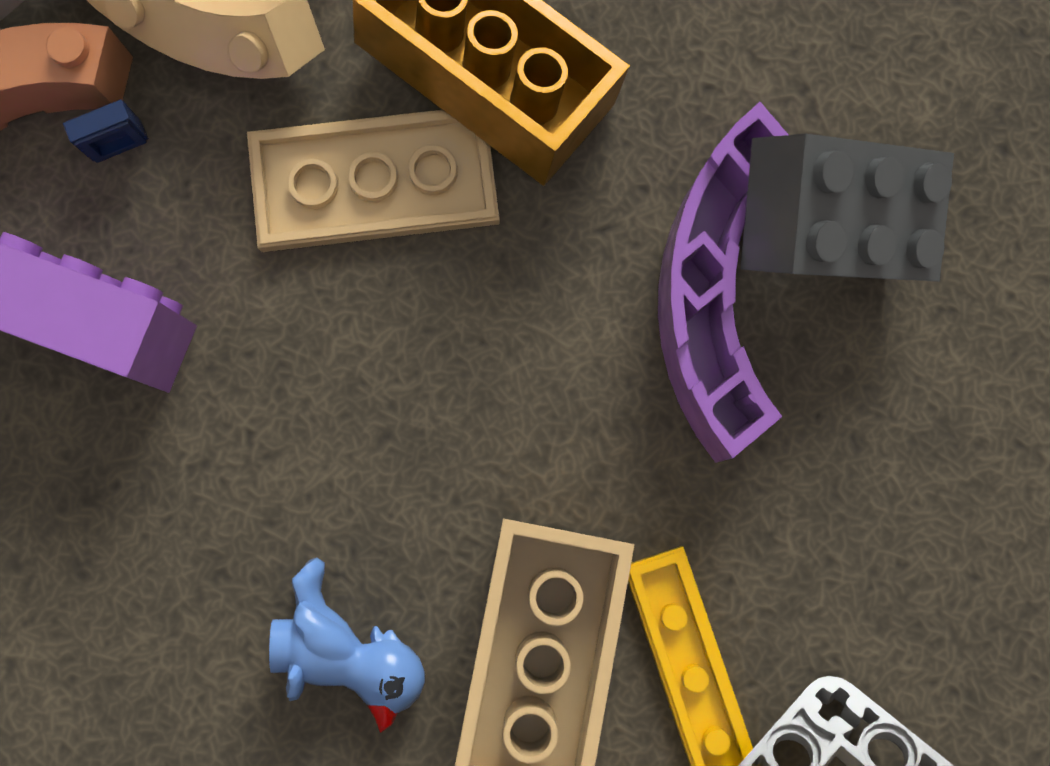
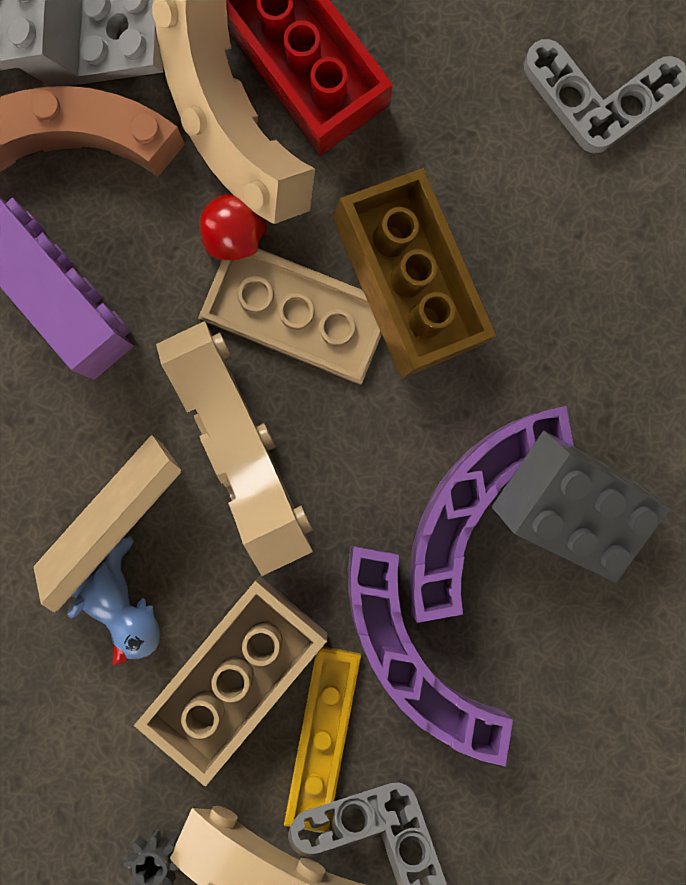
camera: 30 degrees right, 5 degrees up
(106, 131) = (141, 190): dark blue tile -> none
(240, 117) = (230, 228): none -> red hair
(273, 556) = (104, 523): none -> tan tile
(391, 373) = (236, 448): none -> tan brick
(742, 528) = (429, 702): none -> medium lavender brick

